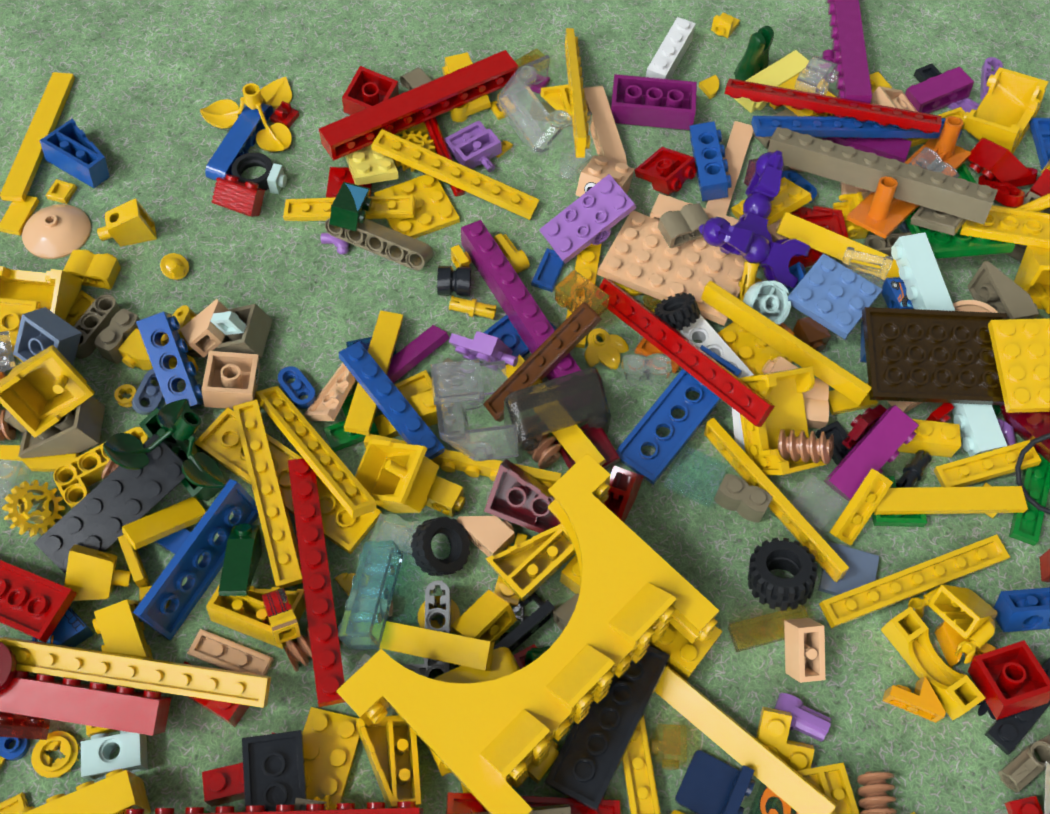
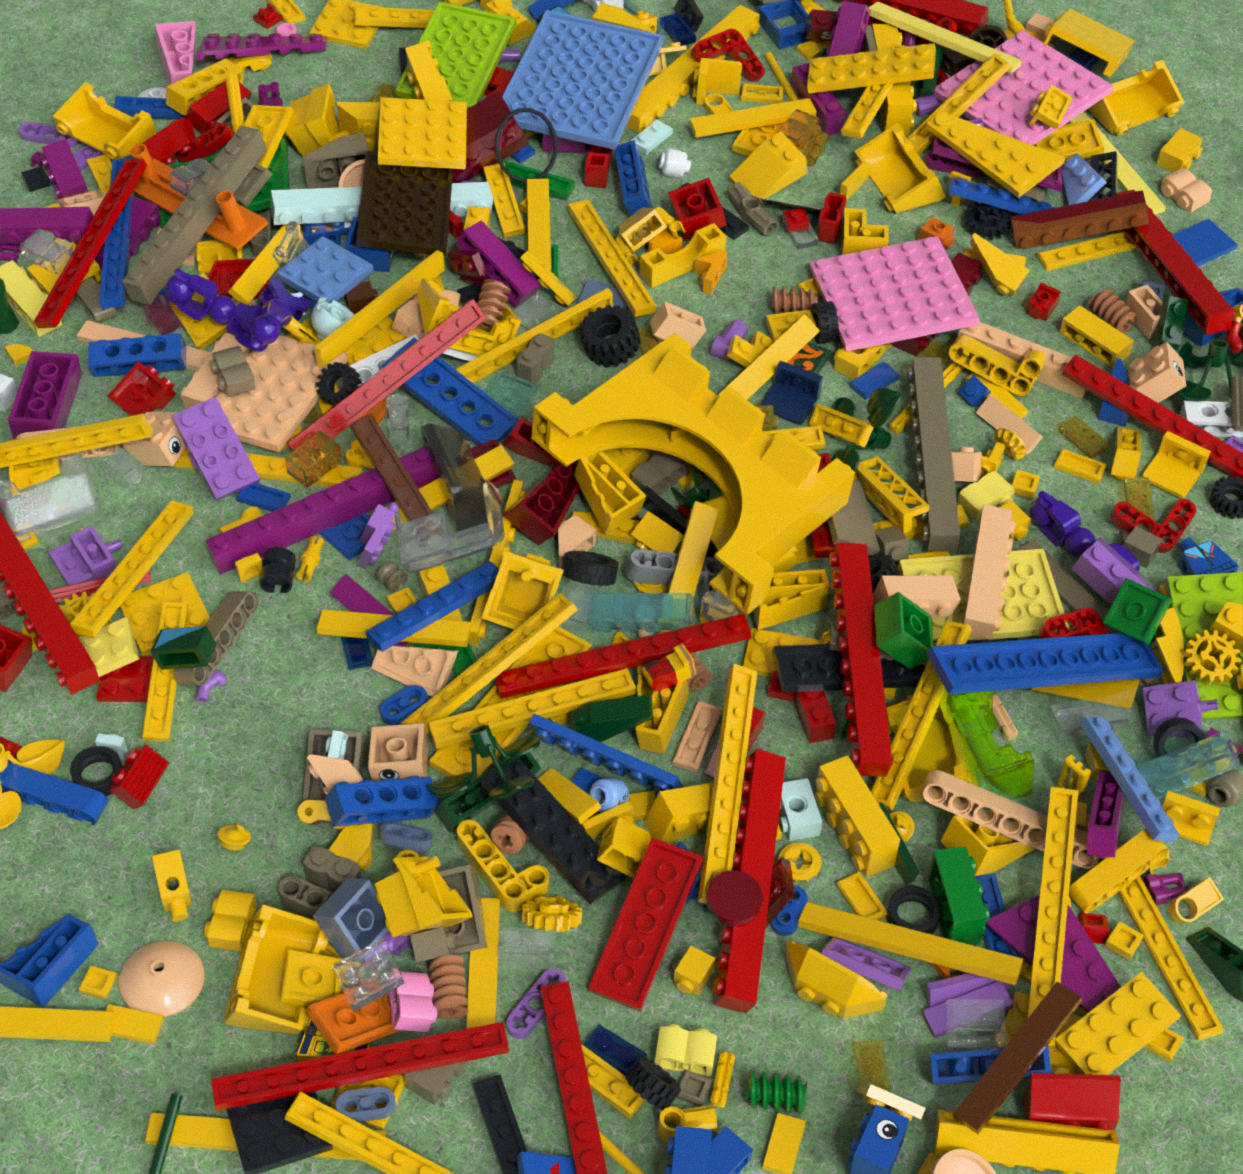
camera: 90 degrees left, 10 degrees down
(156, 559) = (609, 793): none -> light blue head

